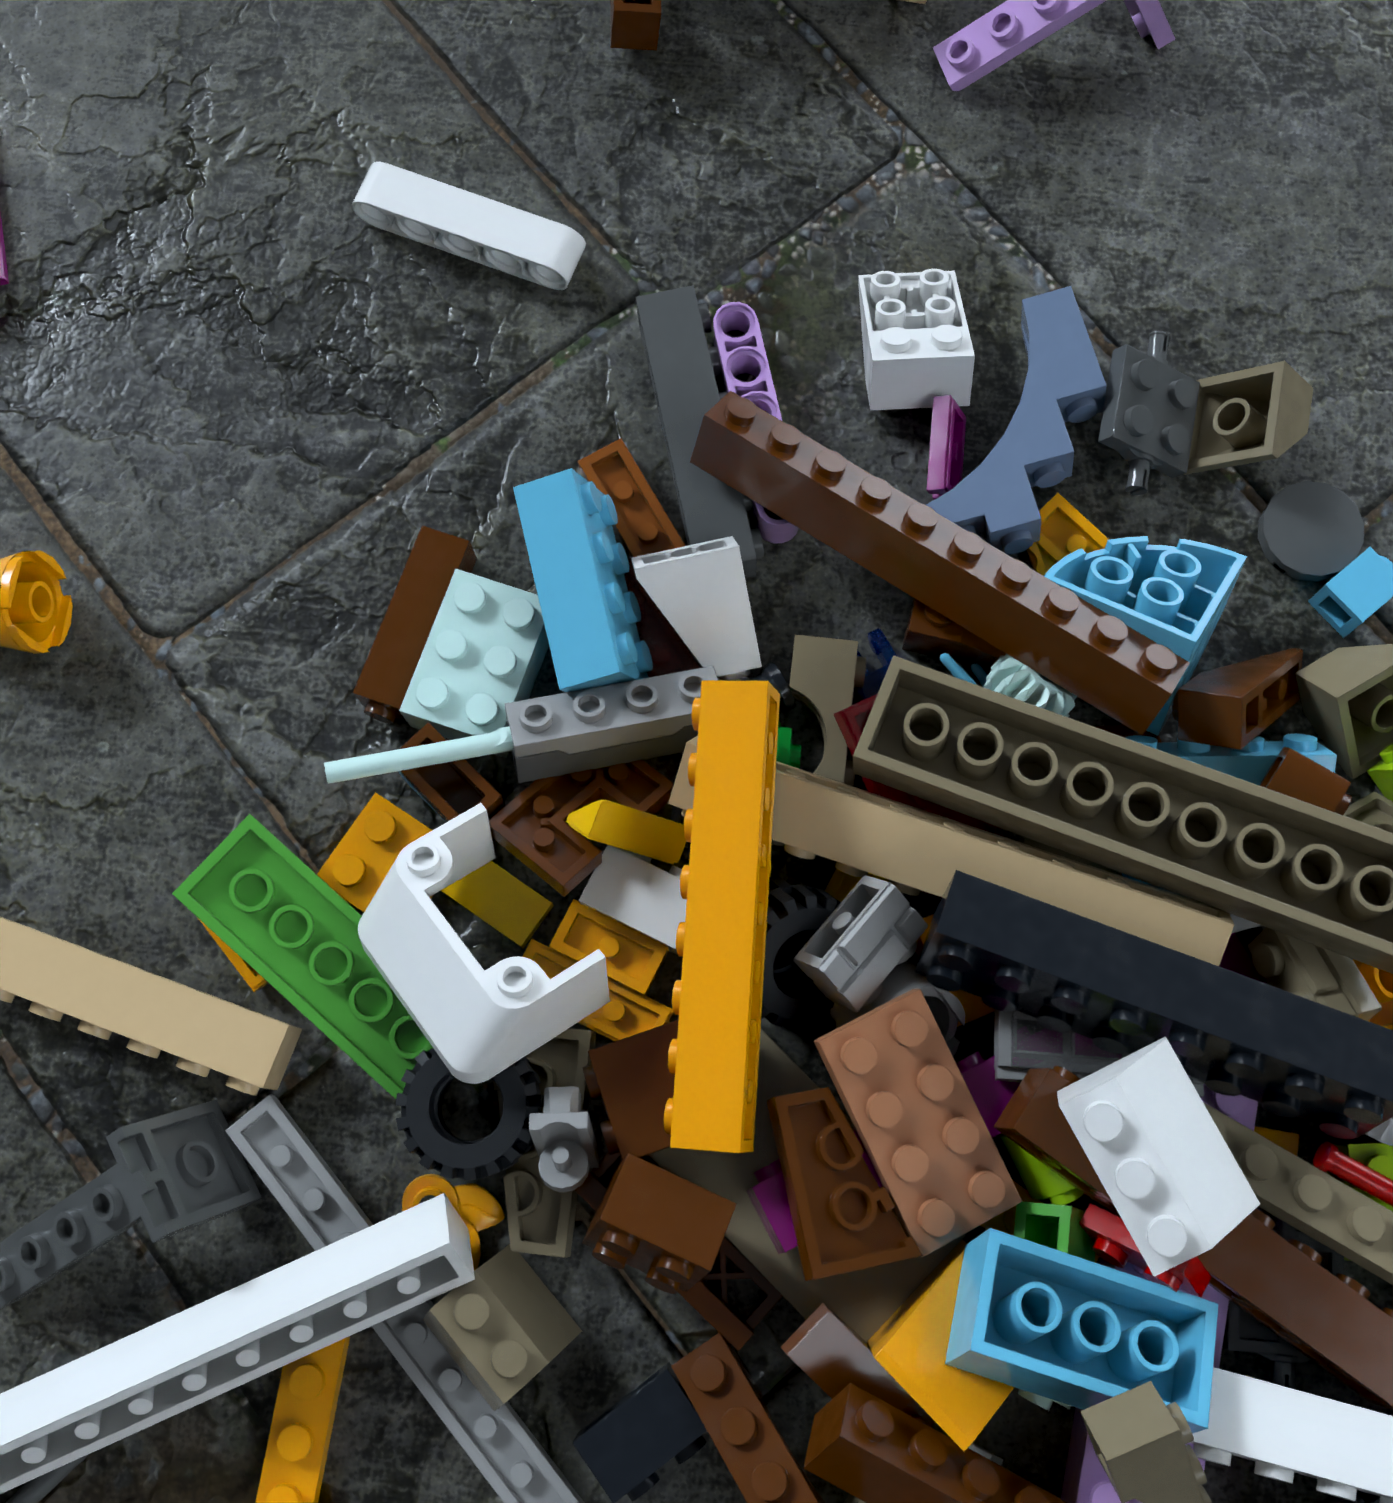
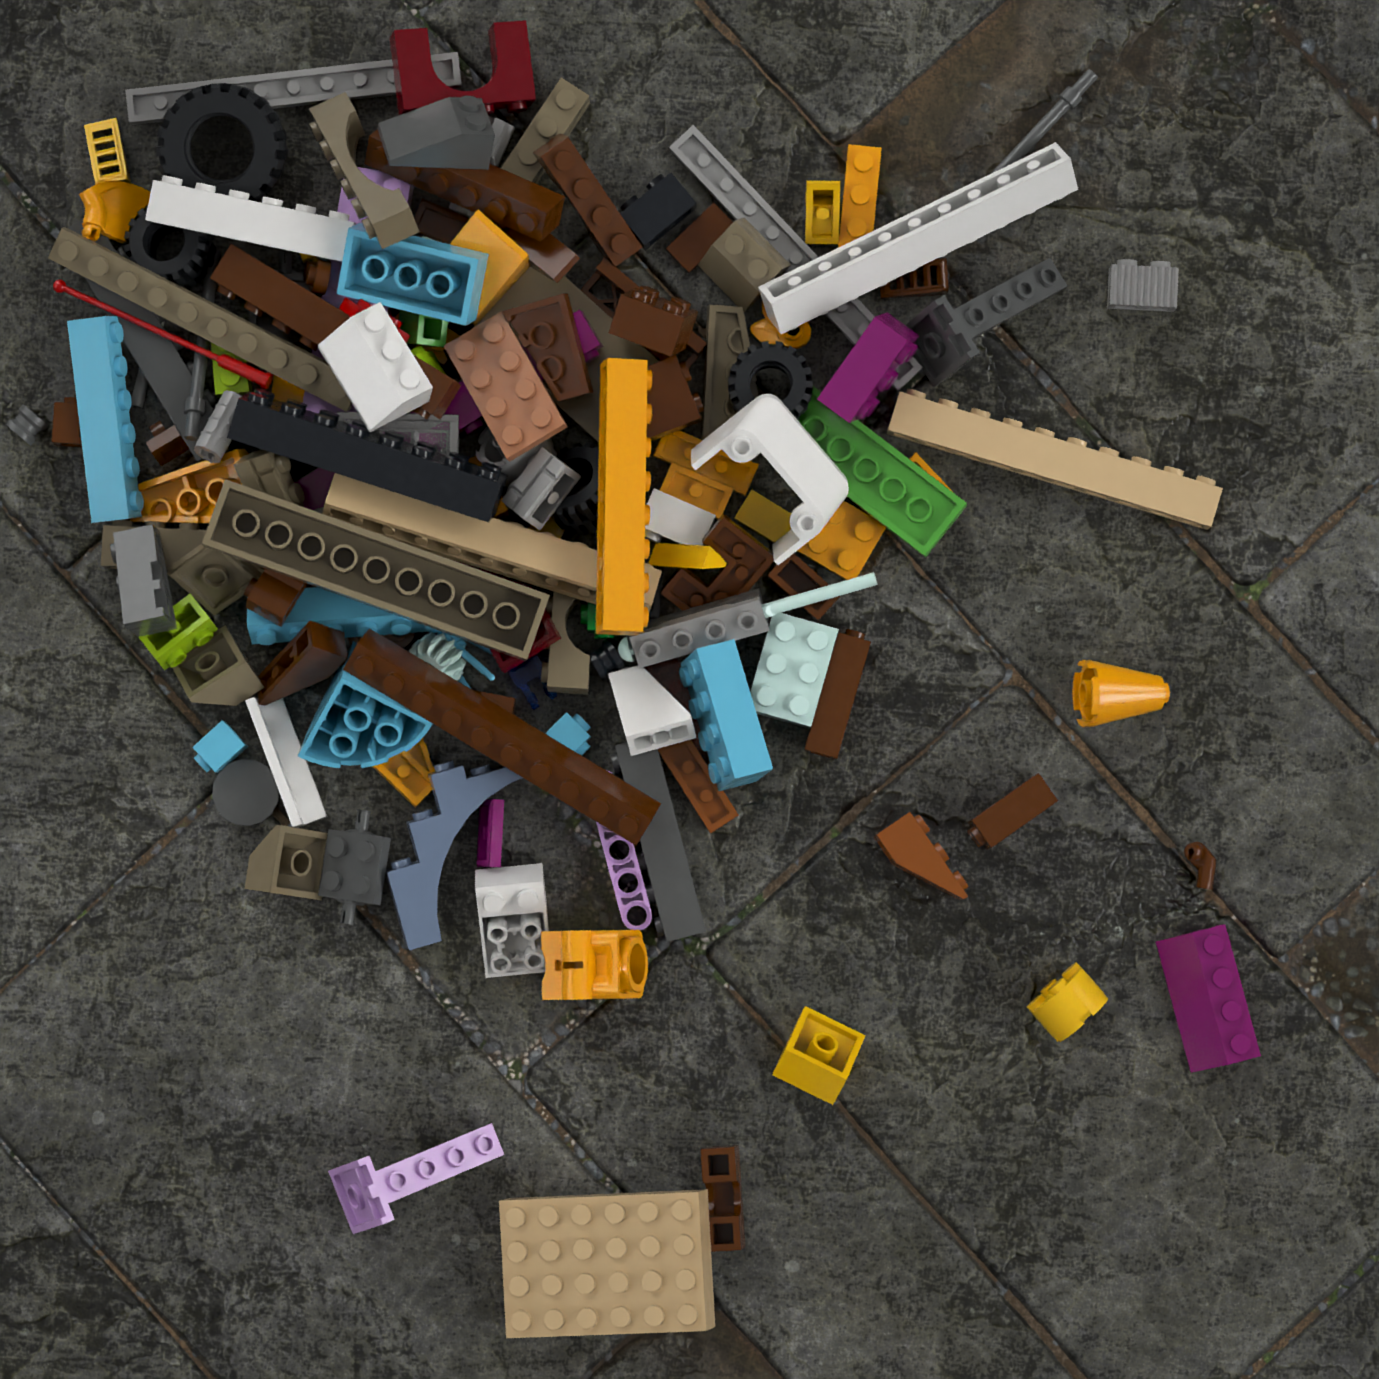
camera: 170 degrees right, 10 degrees up
(128, 184) = (1067, 1002): none -> yellow brick
(171, 438) = (1011, 812): none -> reddish brown brick
(176, 1272) = (927, 290): none -> reddish brown slope
(300, 1124) = (869, 368): none -> magenta brick
(315, 385) = (912, 851): none -> dark orange slope
(359, 1415) = (822, 212): none -> yellow slope
(469, 225) = (829, 992): white beam -> none
(489, 142) = (819, 1055): none -> yellow slope
(563, 1139) = (711, 366): light grey hips -> none
(572, 1380) = (698, 237): none -> reddish brown tile
(802, 247) = (593, 964): none -> light orange piece
(827, 583) = (571, 733): none -> medium azure brick
(1024, 1436) = (438, 222): none -> reddish brown tile
(1243, 1342) = (317, 275): none -> reddish brown plate
(1269, 592) = (289, 770): none -> white fence

